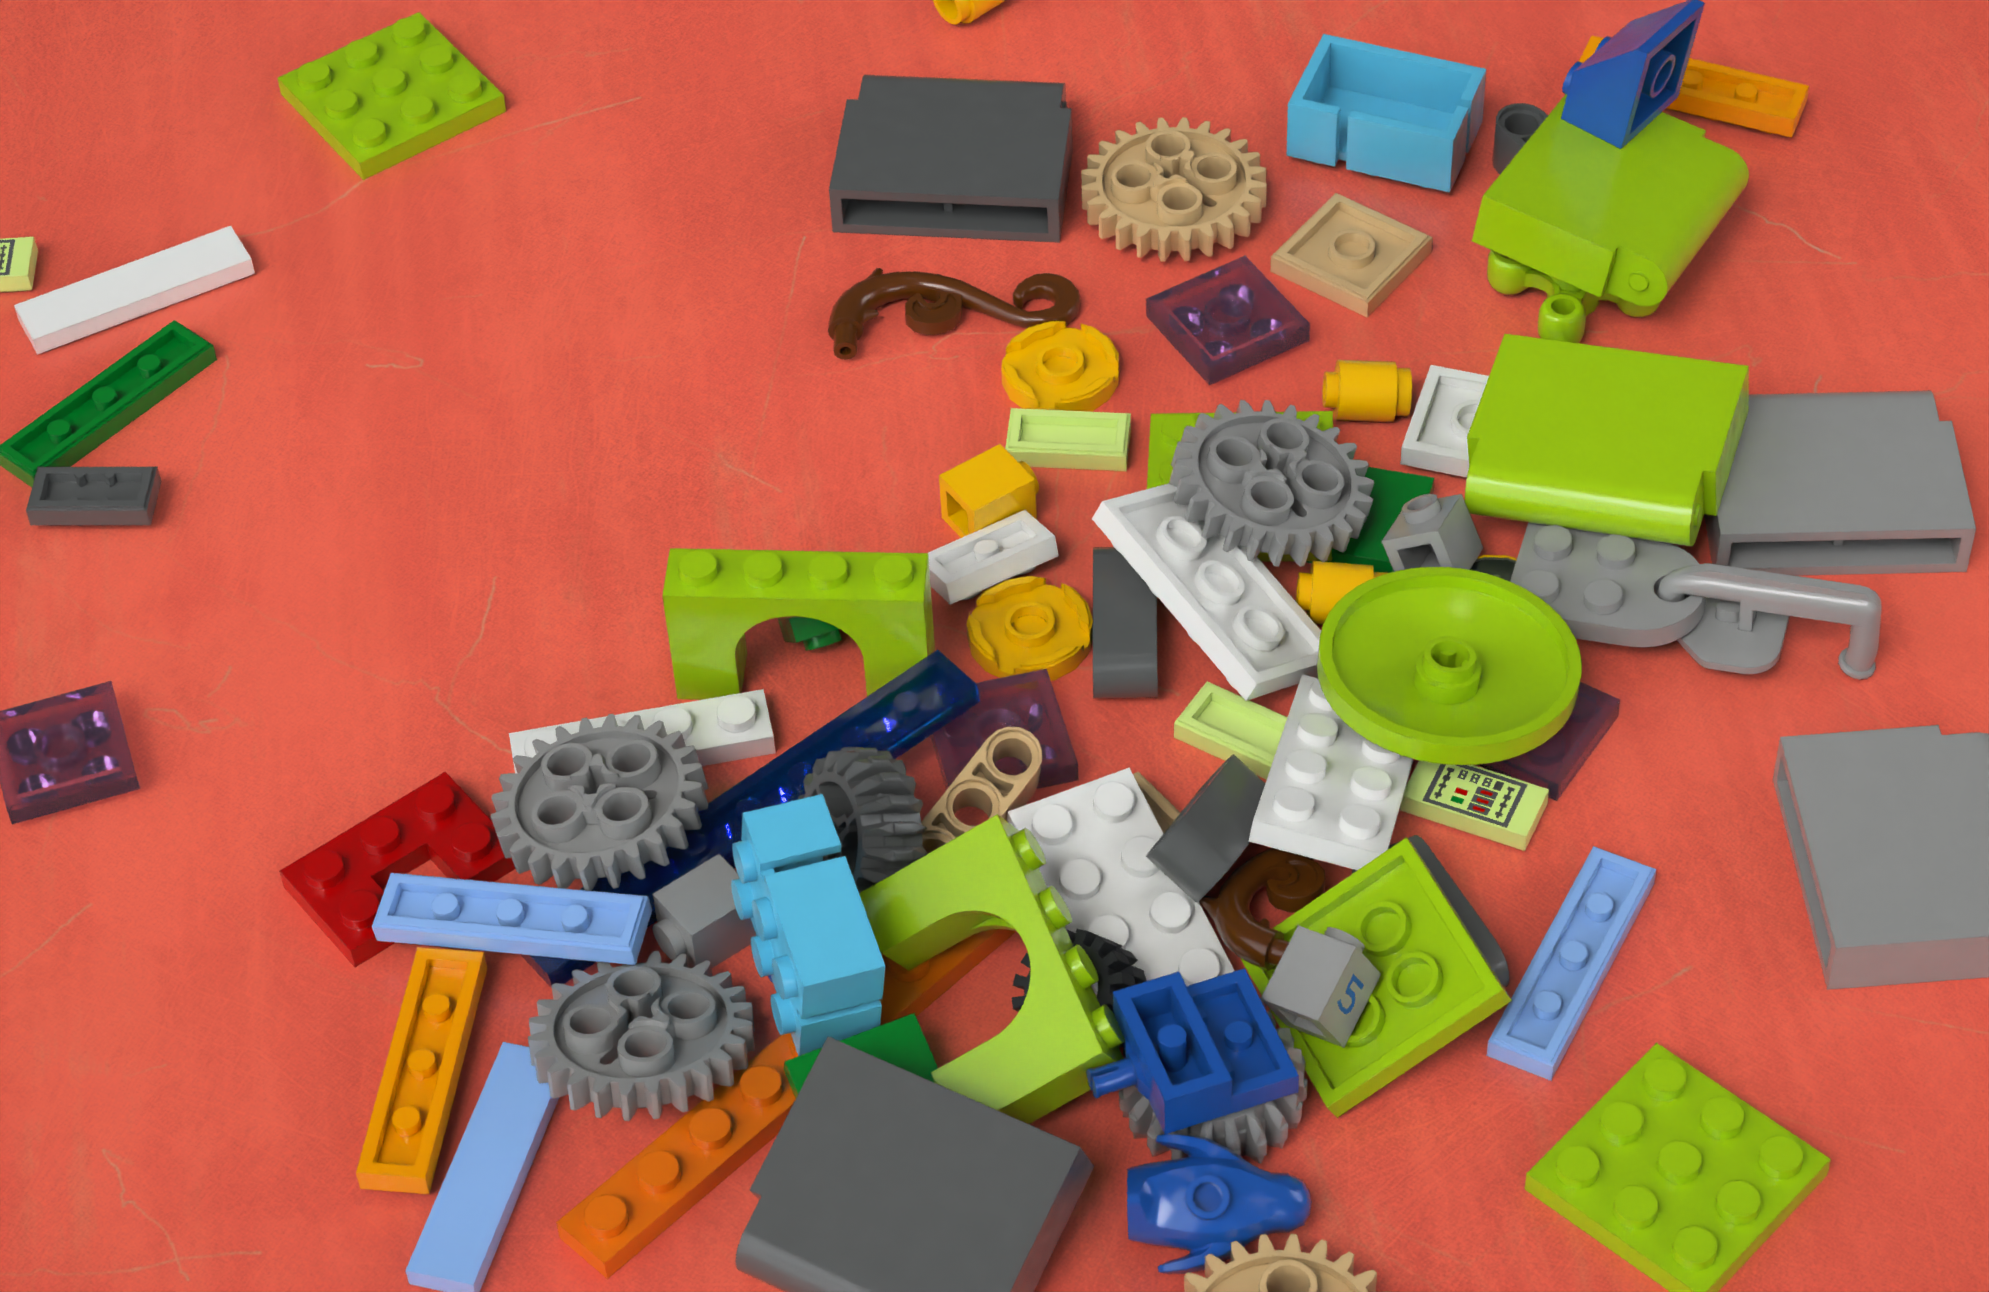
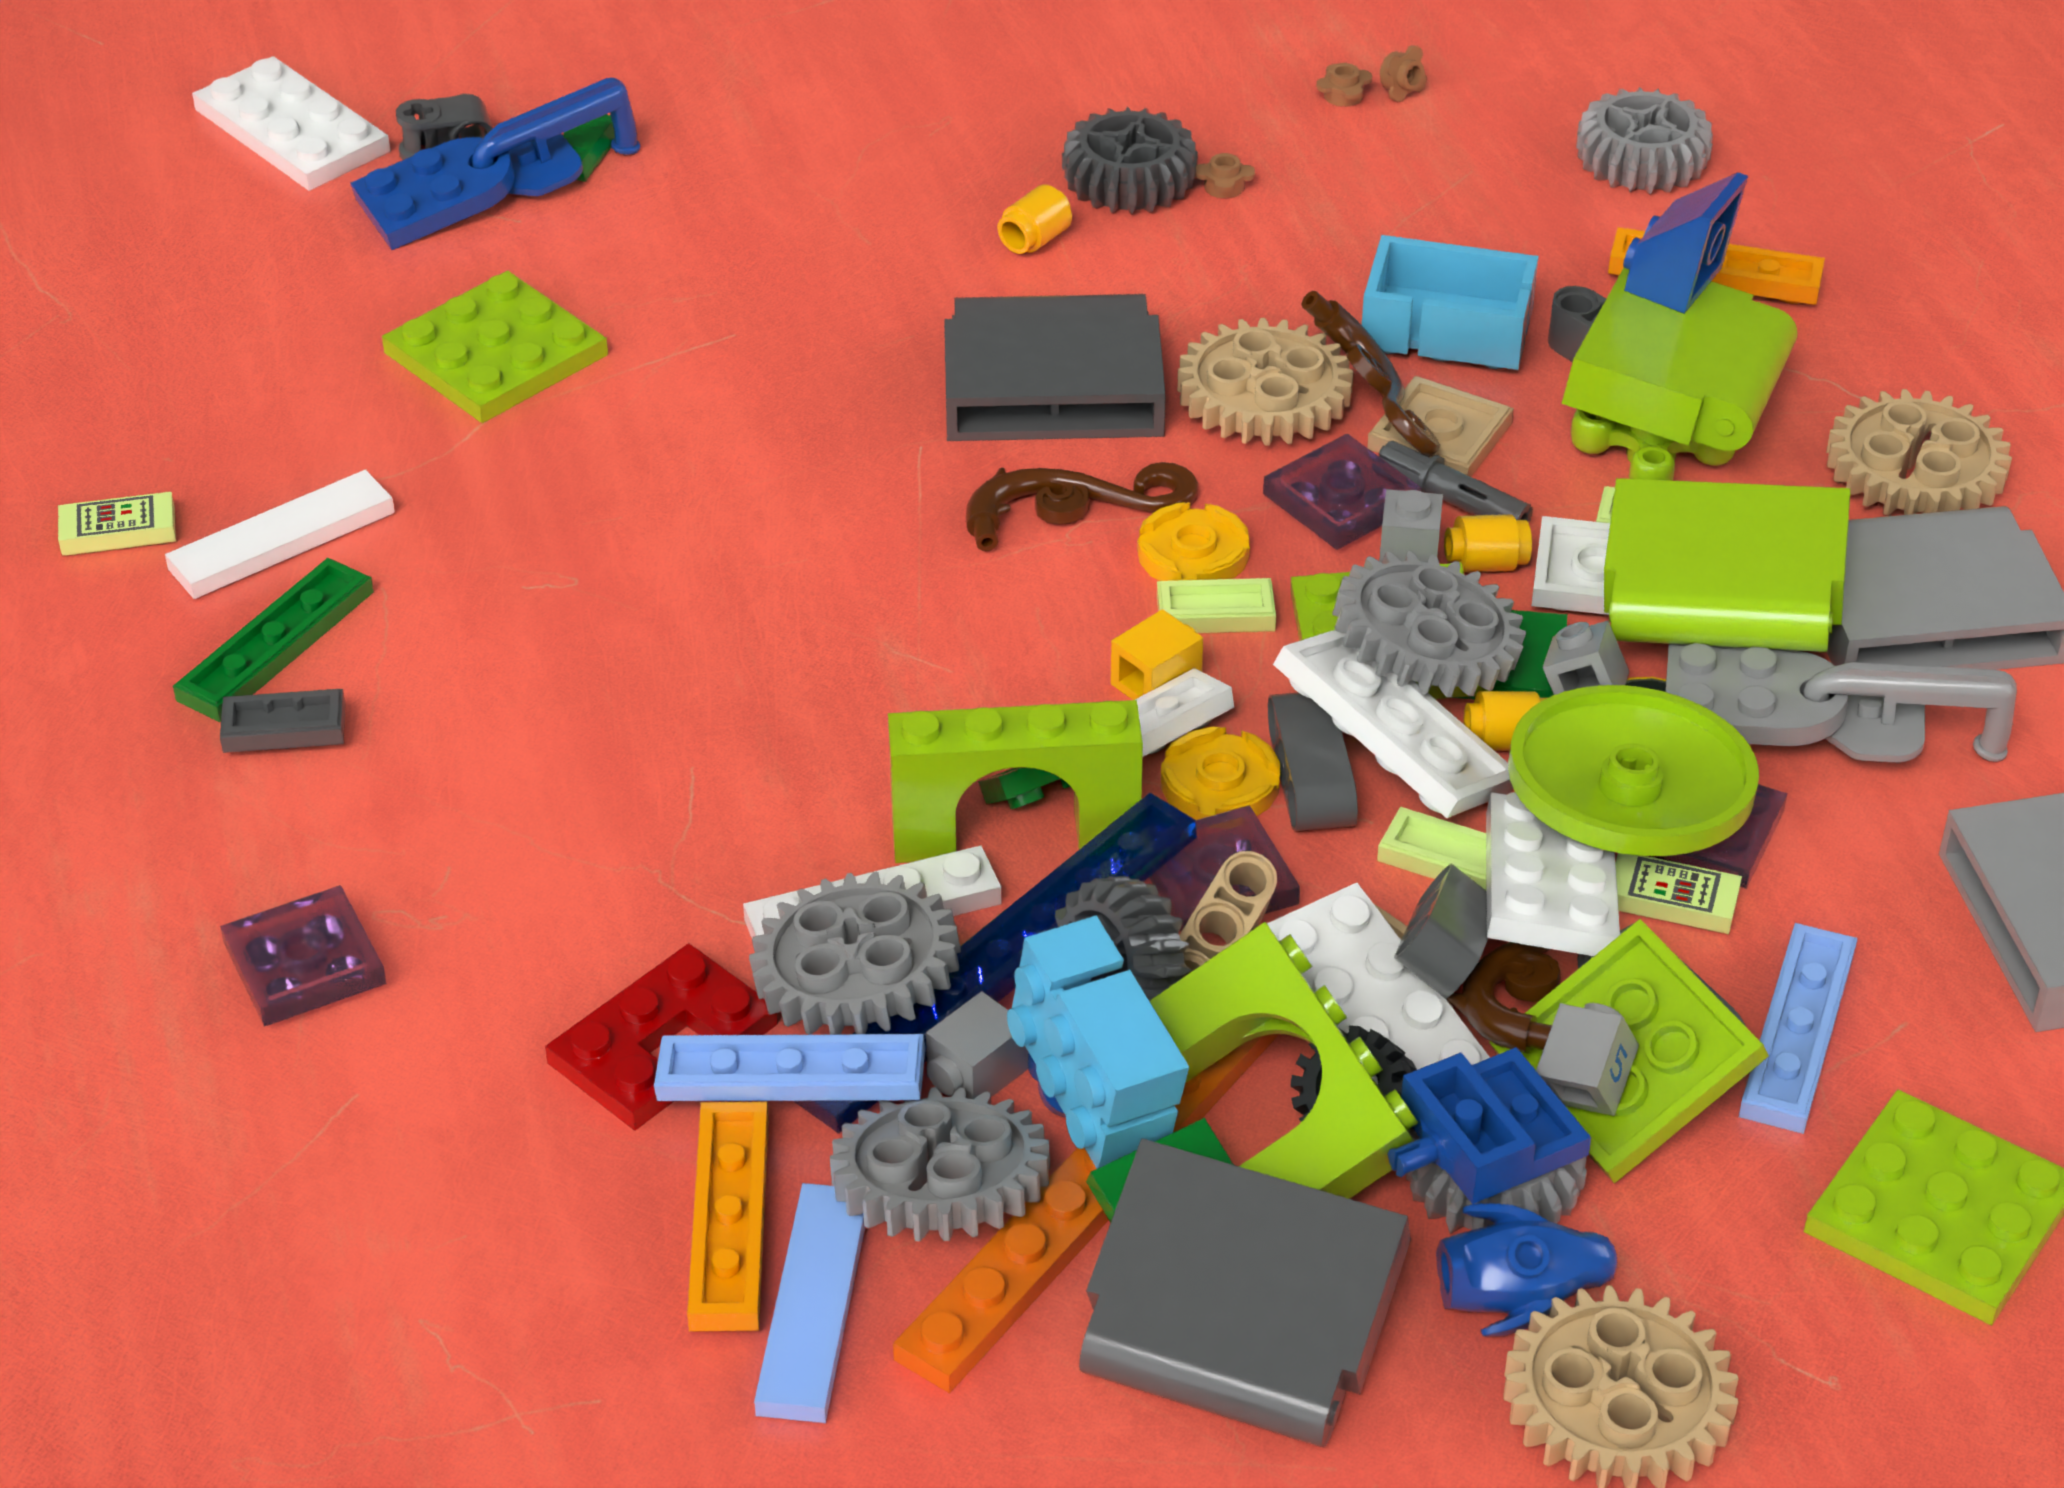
camera: 10 degrees left, 5 degrees down
(1285, 370) = (1411, 524): none -> light grey brick
(1290, 184) = (1372, 366): none -> reddish brown plant
(1329, 311) = (1457, 488): none -> dark grey axle
(1888, 344) = (1952, 470): none -> tan gear

